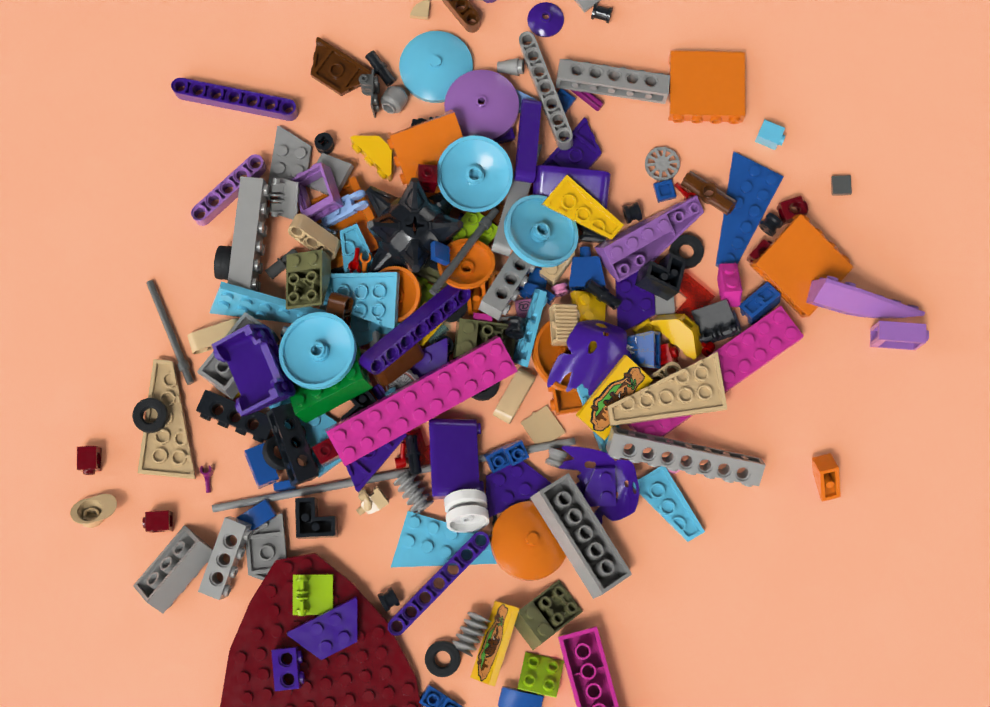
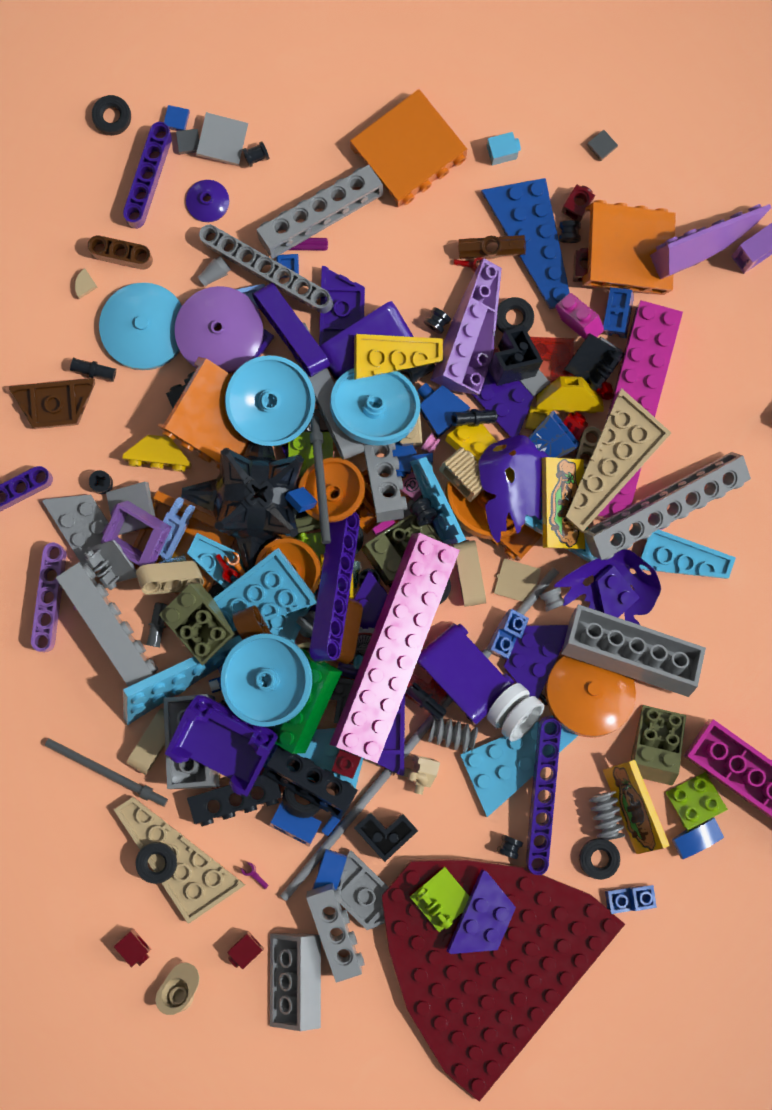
camera: 45 degrees left, 5 degrees up
(222, 262) = (104, 668): black tyre -> none
(281, 668) = (470, 986): dark purple brick -> none
(371, 87) = (99, 394): dark grey hinge -> none
(394, 99) = (131, 389): light grey head -> none
(401, 461) = (417, 716): red hand -> none
(427, 176) = (230, 437): dark red brick -> none
(662, 163) = (426, 253): light grey wheel -> none
(664, 191) = (449, 276): blue tile -> none

